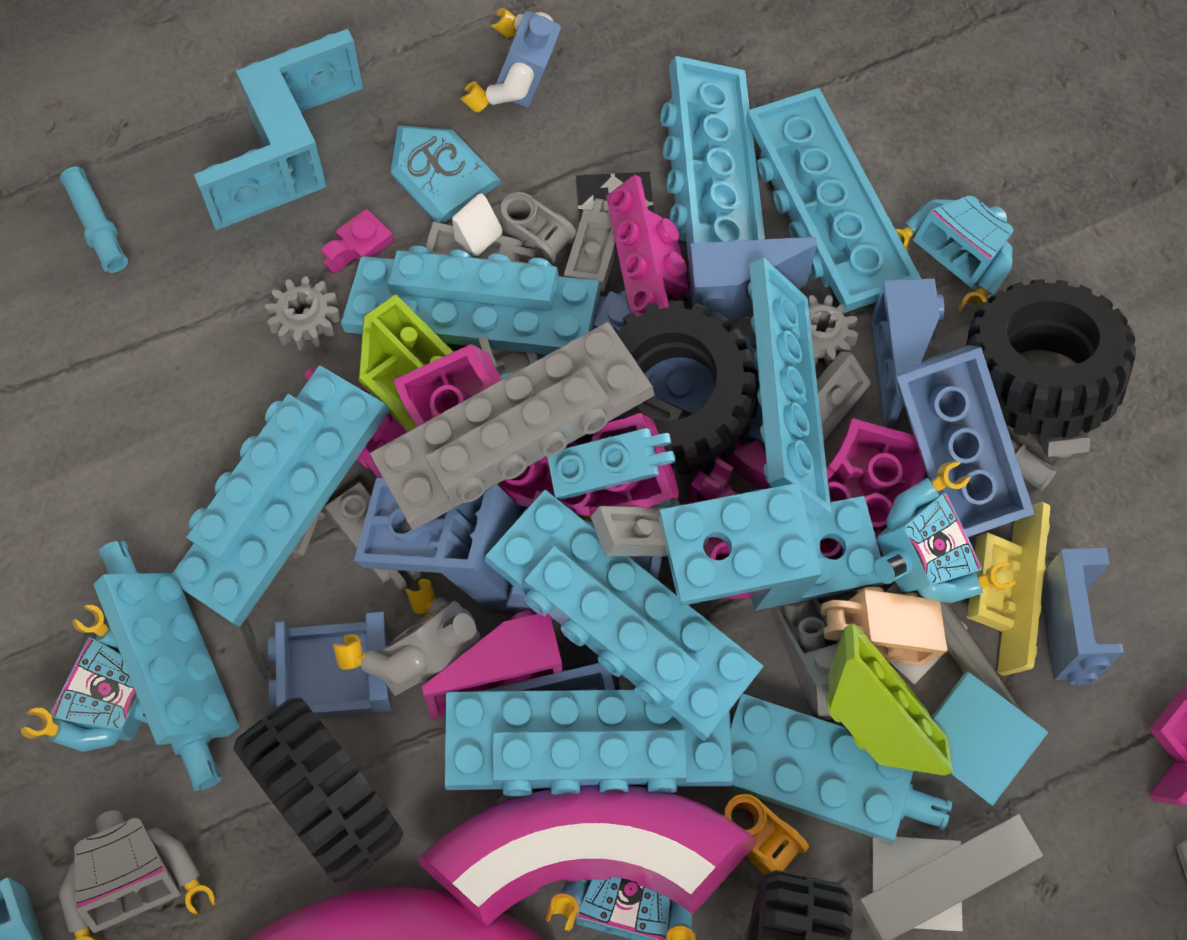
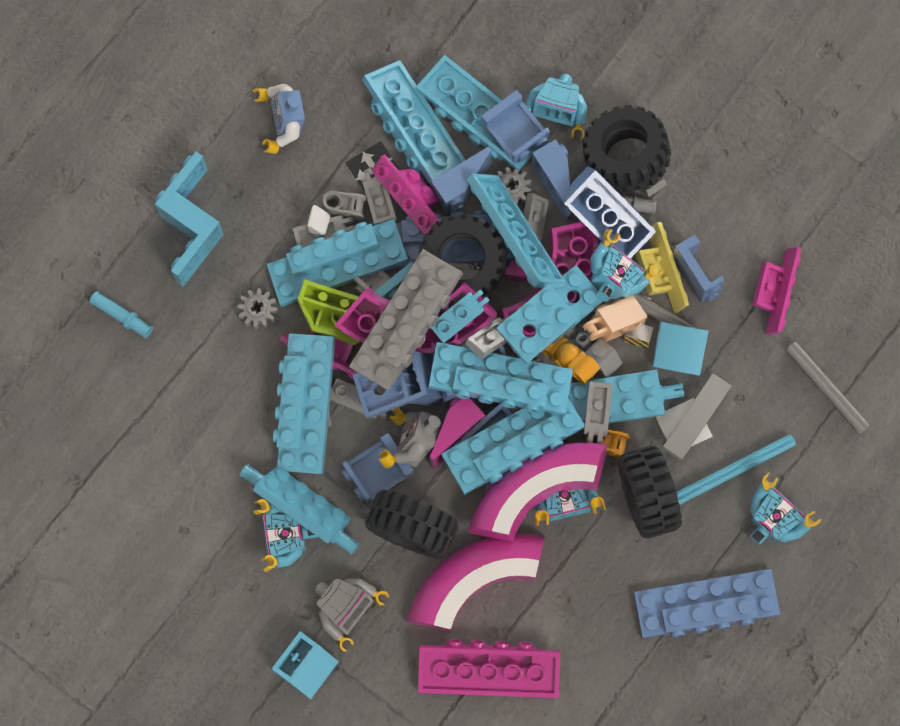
camera: 25 degrees left, 10 degrees up
(357, 238) = (259, 254): dark pink plate -> none
(439, 170) = (275, 196): medium azure tile -> none
(712, 486) = (504, 295): dark pink plate -> none
(769, 641) = (571, 357): none -> light orange piece
(771, 768) = (598, 411): none -> light grey hinge
(873, 234) = (515, 128): none -> medium blue panel
(883, 709) = (633, 359): lime wedge -> none
(922, 679) = (639, 336): none -> white sticker

